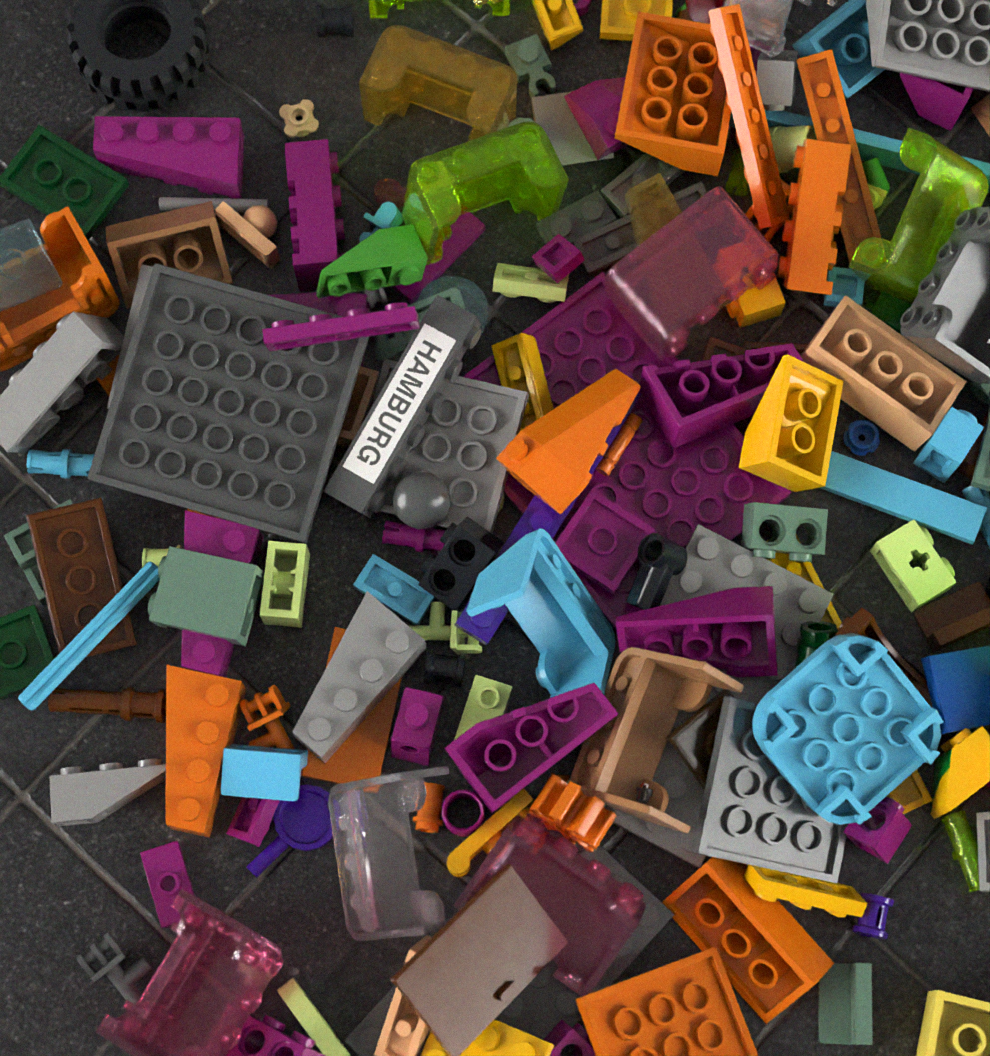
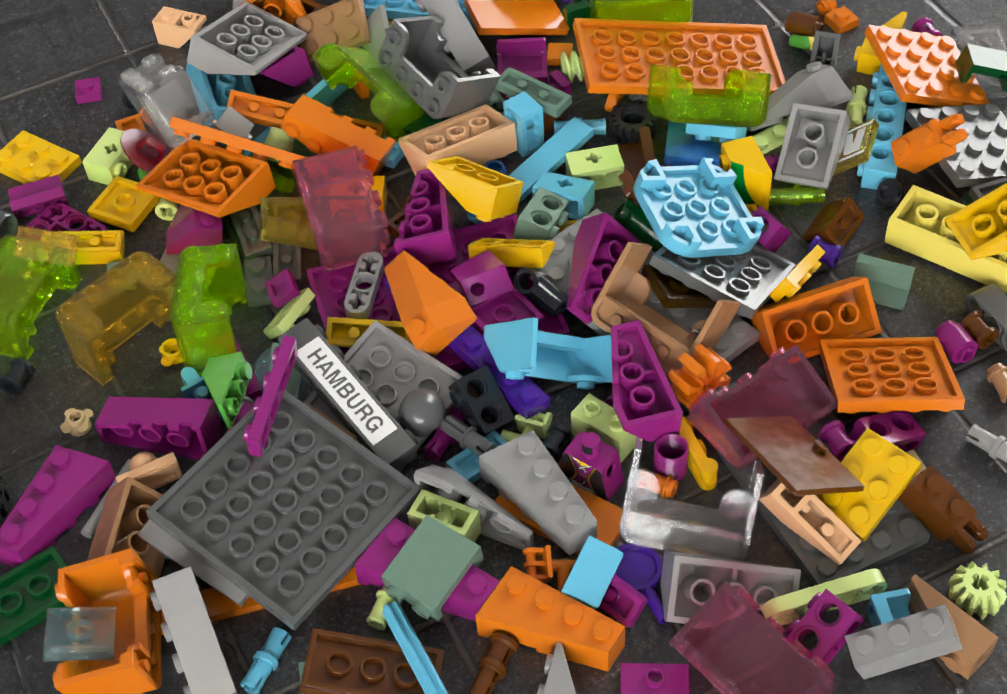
camera: 65 degrees left, 25 degrees down
(305, 912) = (693, 578): none -> light grey wedge
(328, 580) = (494, 519): none -> light grey wedge
(389, 191) = (171, 379): piece -> none
(407, 566) = (466, 435): none -> dark grey axle
(545, 1009) = (836, 439): none -> magenta bush
(623, 360) = (360, 276): none -> light grey beam
(639, 490) = (481, 278): none -> magenta torso
(706, 512) = (515, 251): none -> yellow slope
(848, 544) = (577, 190): none -> medium azure brick
(931, 916) = (836, 222): none -> reddish brown panel

